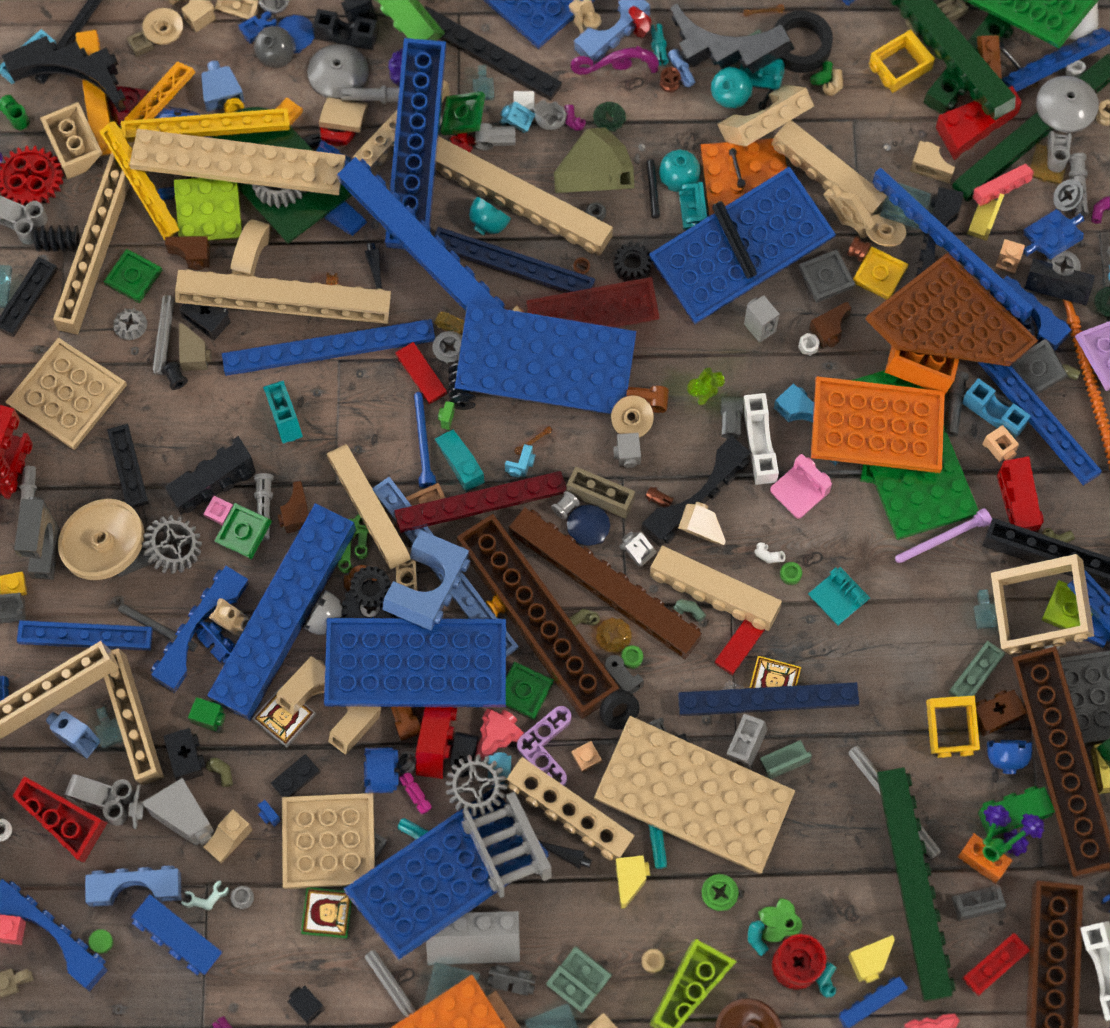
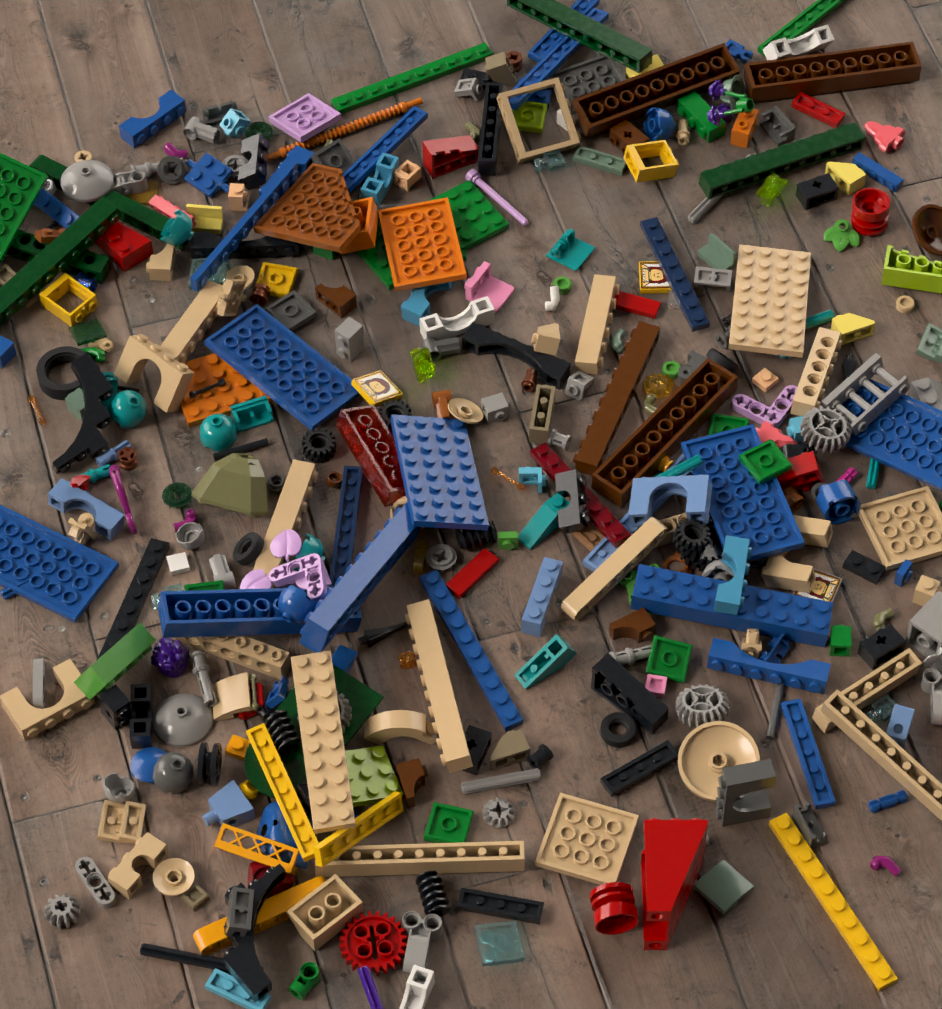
camera: 105 degrees left, 15 degrees down
(77, 49) = (239, 911): none -> dark grey hinge
(178, 448) = (618, 718): none -> black tyre
(253, 26) = (153, 798): blue plate -> none
(267, 74) = (209, 764): none -> black wheel
(277, 137) = (280, 731): none -> black piece
(325, 619) = (728, 594): none -> dark azure arch
(347, 417) = (538, 603): none -> medium blue arch
(354, 133) = (252, 677): none -> olive hinge
(397, 167) = (294, 604): none -> blue cylinder
(426, 477) = (570, 541): blue piece -> none
(438, 193) = (314, 567): none -> lavender beam
(440, 199) = (283, 545): none -> lavender plant
(444, 697) = (765, 462): none -> green tile
(467, 602) = (683, 467): none -> teal axle
(477, 485) = (575, 515): none -> arch
(513, 163) = (244, 555): none -> black tyre
(517, 116) = (196, 563): medium azure bracket -> none
(588, 525) = (570, 421): dark blue dish -> none
(652, 357) = (393, 408): none -> black tyre
(690, 335) = (376, 388): none -> tile
(717, 882) = (831, 269): bright green gear -> none
(734, 240) = (284, 366): black axle -> none
(754, 937) = (859, 247): teal arm -> none
(808, 344) = (357, 311): white tile -> none
(853, 73) = (87, 332): none -> clear green piece
(854, 926) = (817, 191): none -> black brick
(872, 857) = (771, 189): none -> clear neon green hips
(920, 82) = (89, 283): none -> clear blue bush
(960, 173) = (177, 229): none -> teal cylinder
(998, 783) = (683, 134): none -> tan pin
(1043, 861) = (733, 85): none -> sand green piece

